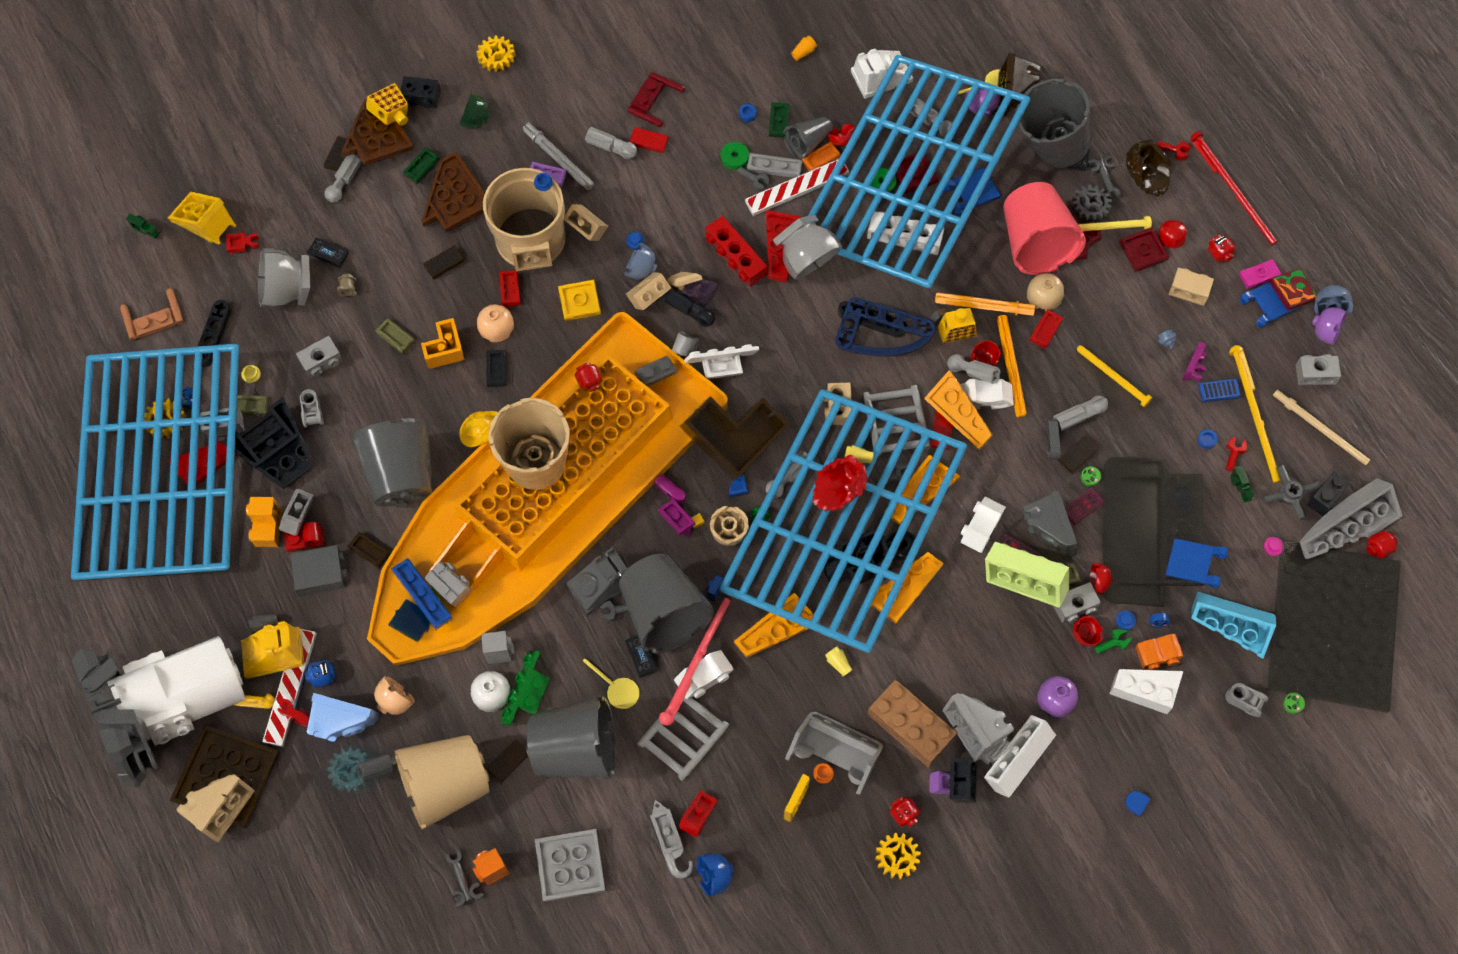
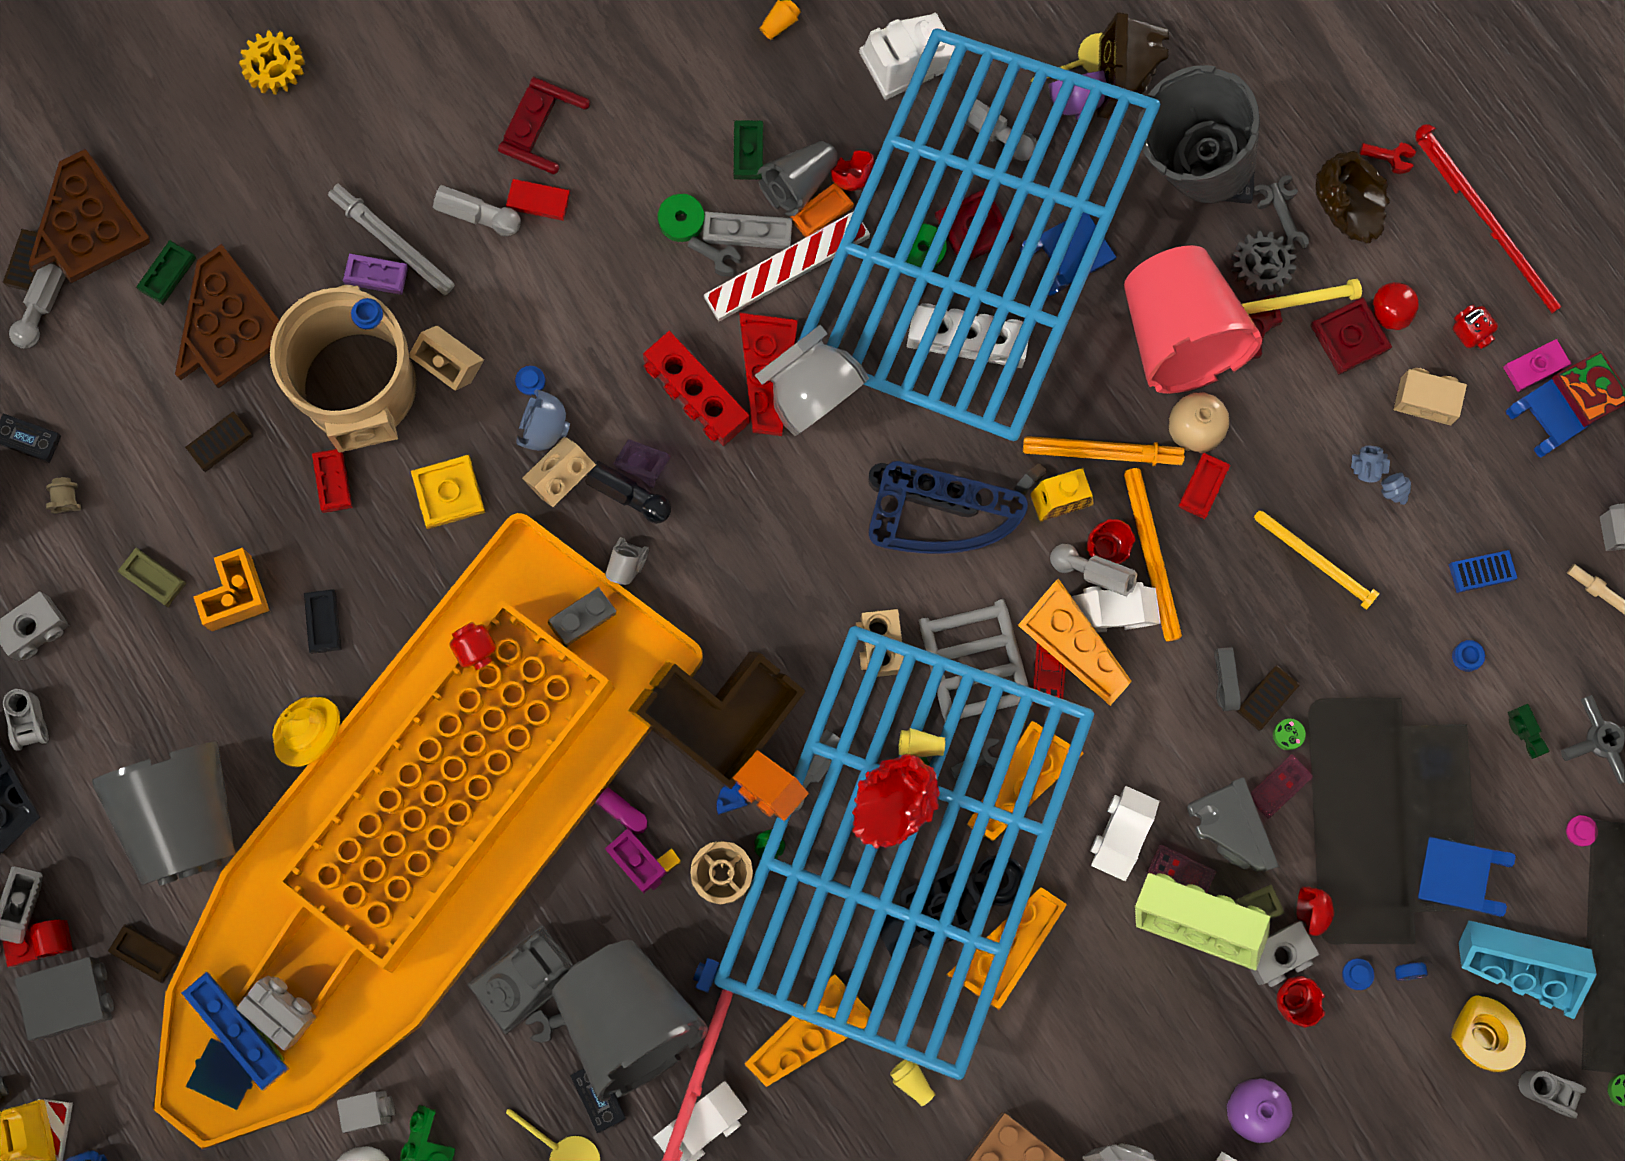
camera: 10 degrees left, 10 degrees up
(388, 105) = (100, 172): yellow torso -> none
(420, 91) = (151, 141): black brick -> none
(475, 112) = (246, 173): clear green cylinder -> none
(495, 323) = (313, 543): light nougat cylinder -> none
(526, 432) = (362, 774): tan cone -> none
(682, 278) = (613, 445): tan piece -> none
(722, 363) = (688, 591): white bracket -> none
(747, 113) = (696, 139): blue tile -> none
(763, 475) = (770, 786): none -> orange brick
(1081, 412) = (1269, 627): light grey piece -> none
(1114, 641) = (1342, 1011): green bar -> none
(1147, 687) = (1401, 1088): white wedge -> none
(1151, 322) = (1370, 463): none -> sand blue gear
(1159, 652) = (1414, 1025): orange brick -> none
(1194, 367) = (1447, 516): magenta plate -> none
(1207, 660) = (1489, 1034): none -> yellow hat
(1234, 452) = (1512, 675): red bar -> none
(1238, 353) = (1529, 562): yellow bar -> none

